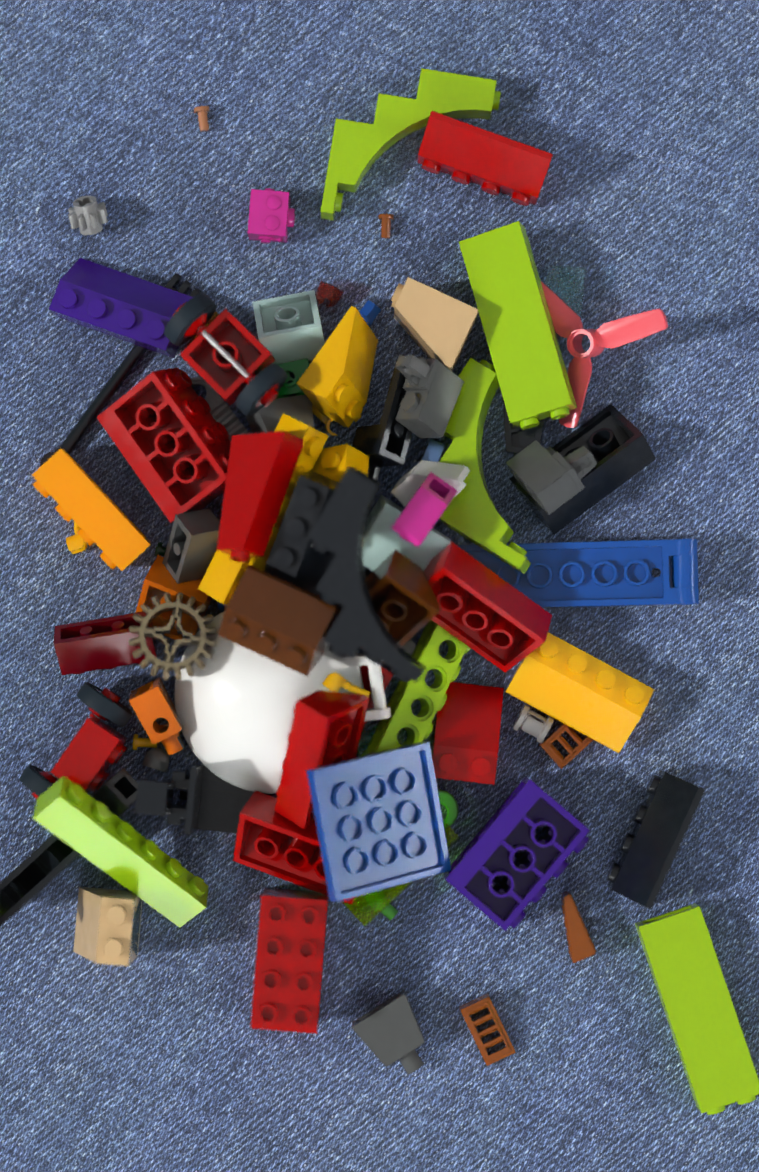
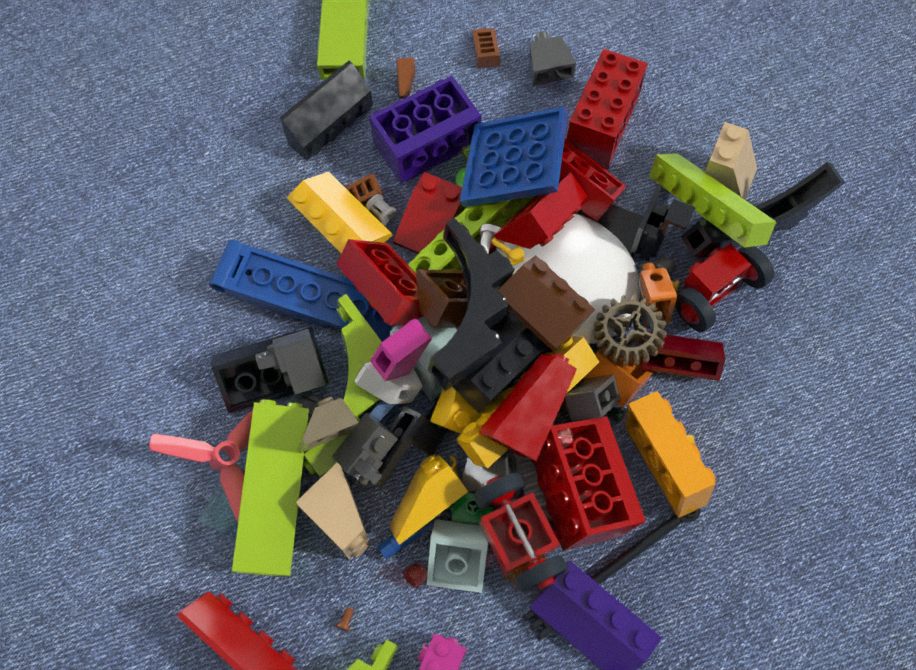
camera: 160 degrees left, 20 degrees down
(478, 402) = (327, 422): none -> dark tan slope

